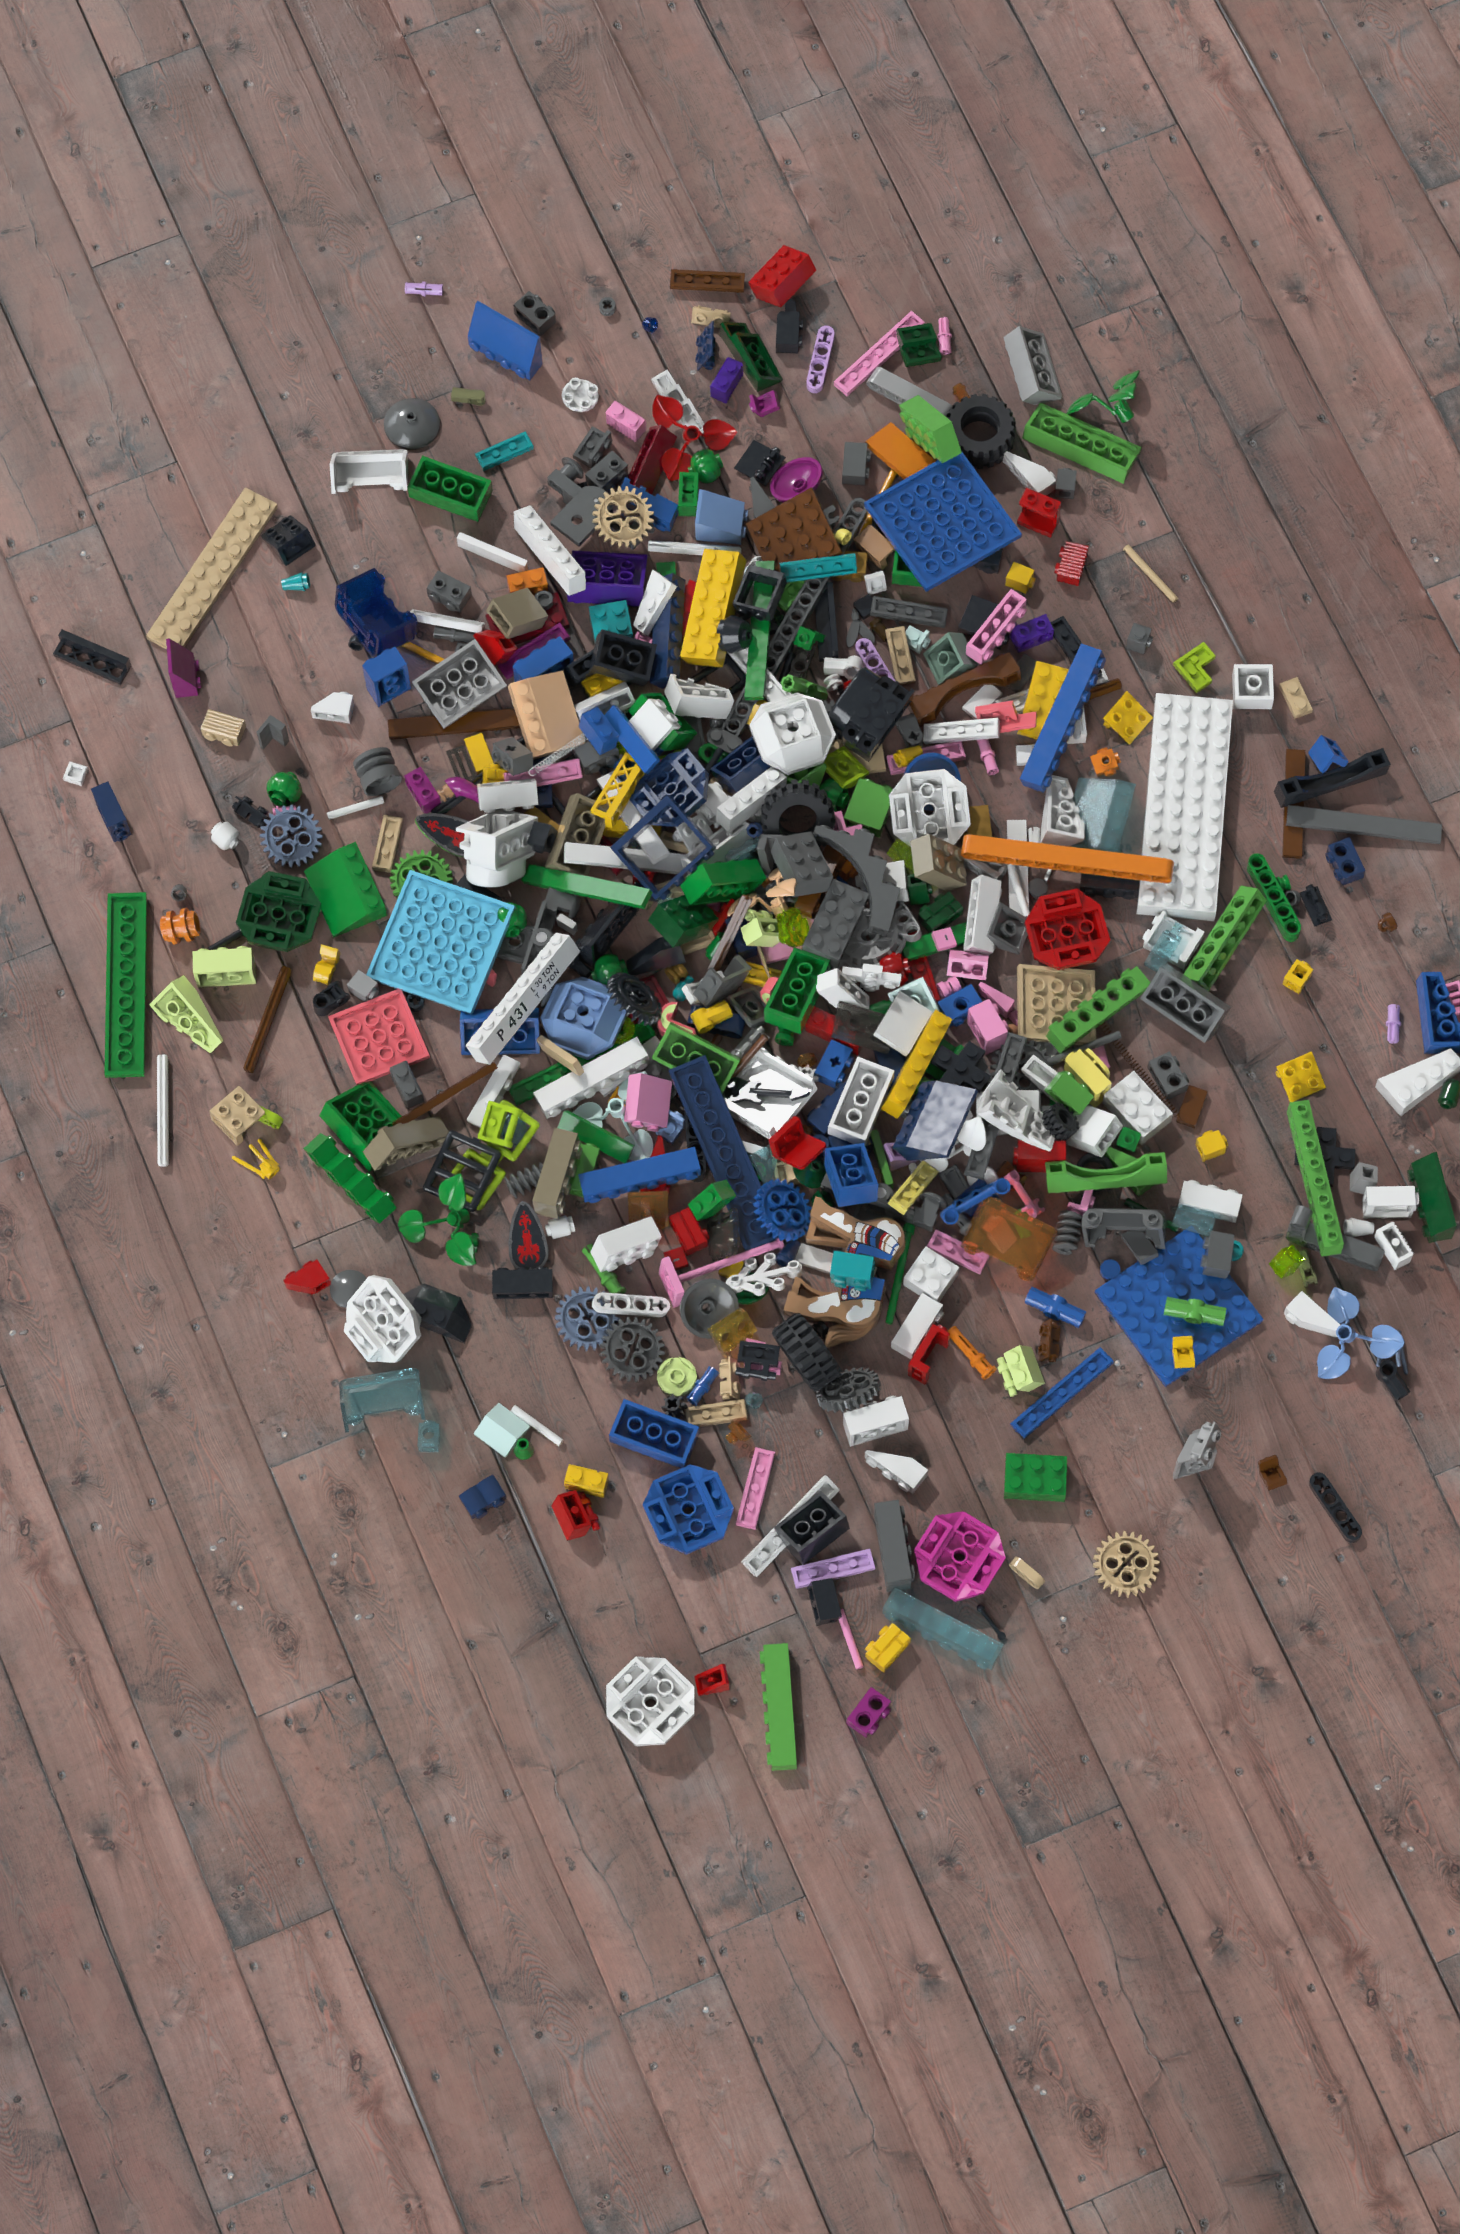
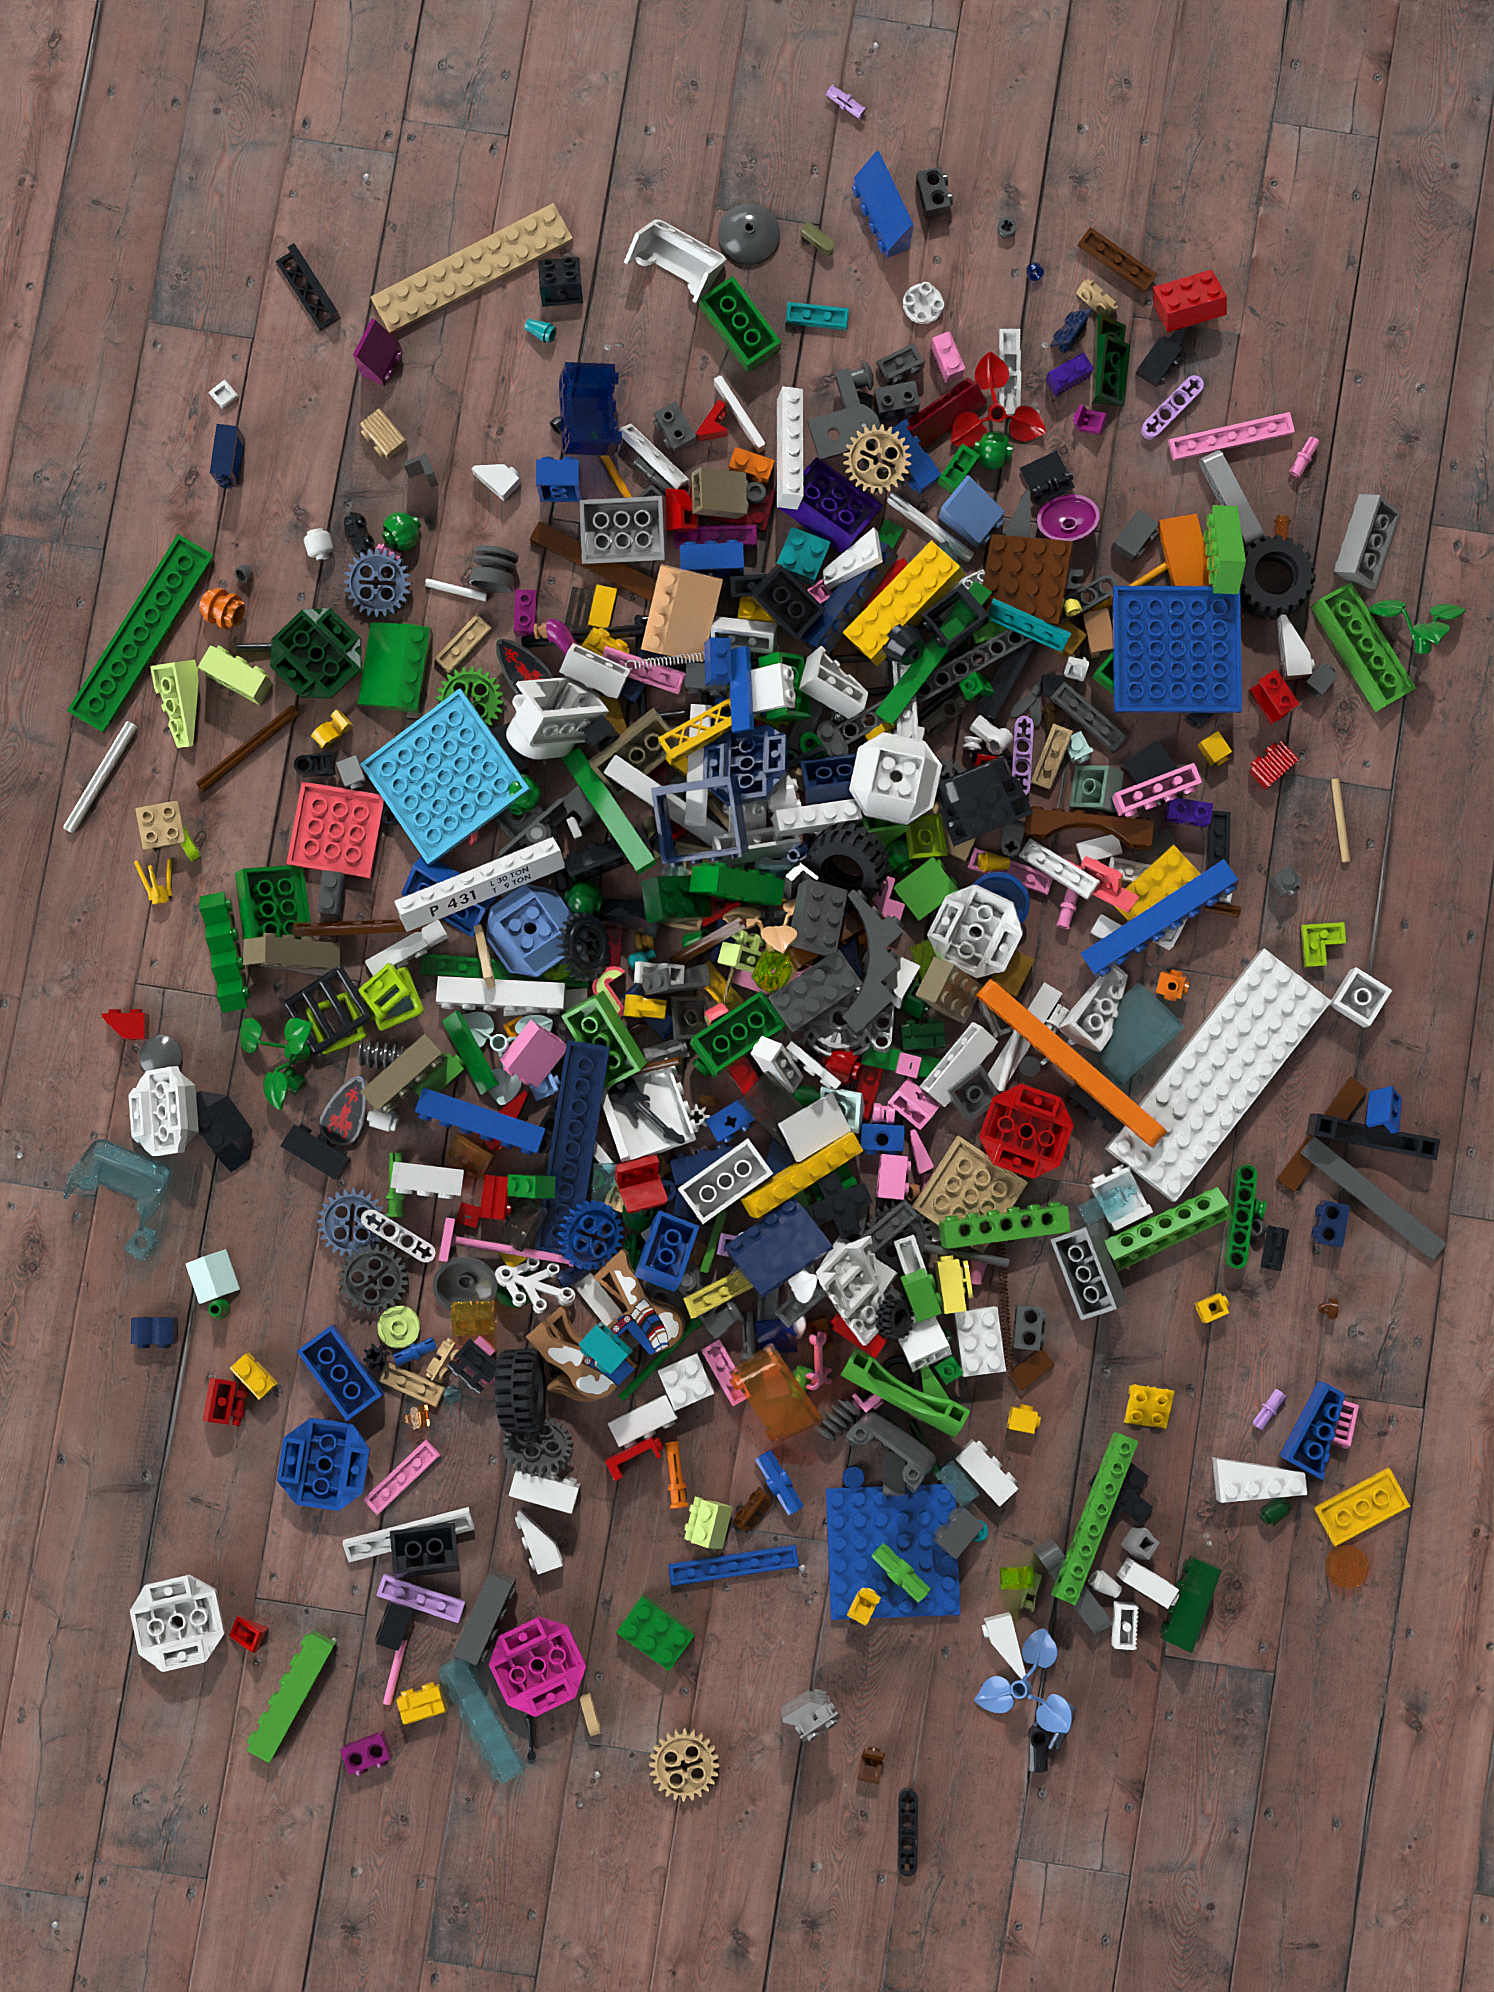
camera: 25 degrees right, 15 degrees up
(477, 574) = (710, 428): none -> red slope
(512, 756) = (622, 636): dark grey brick -> none
(537, 1425) = (245, 1292): white bar -> none
(799, 685) = (938, 737): bright green piece -> none
(918, 345) = (1273, 451): dark green slope -> none
(951, 1214) = (794, 1352): blue bar -> none
(1127, 718) = (1222, 952): yellow hinge -> none
(1295, 698) = (1393, 1031): tan plate -> none

